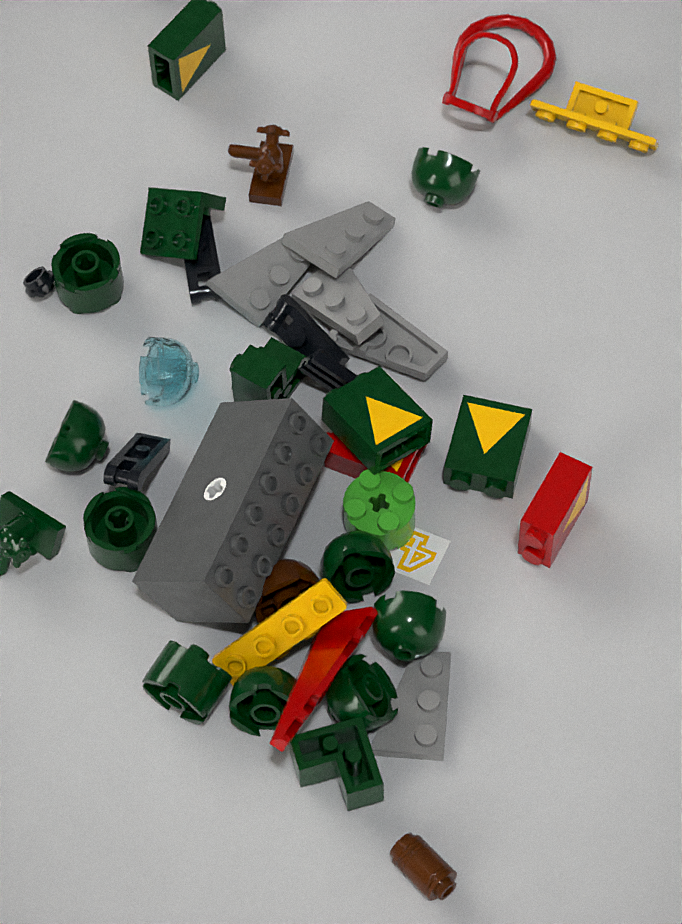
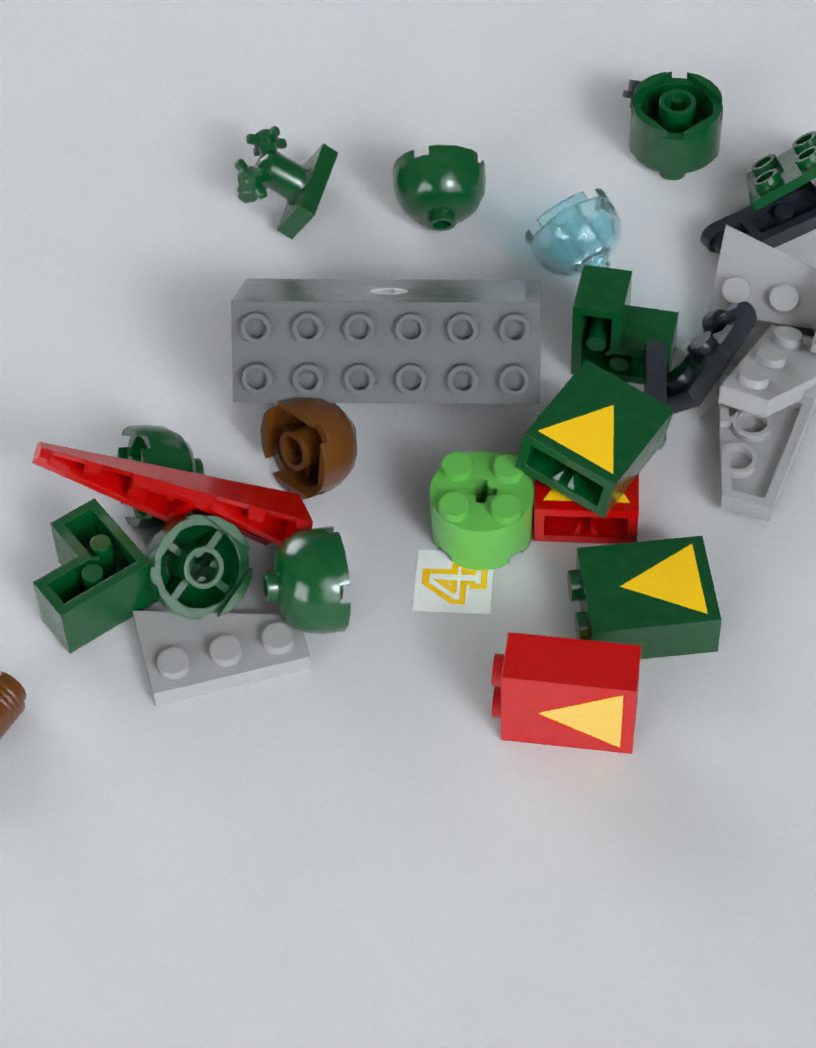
camera: 70 degrees right, 10 degrees down
(119, 528) = (334, 248): dark green brick -> none
(136, 461) = (427, 241): black plate -> none
(186, 681) = (143, 383): dark green brick -> none
(282, 630) = (246, 446): yellow bracket -> none
(357, 565) = (383, 502): dark green cylinder -> none

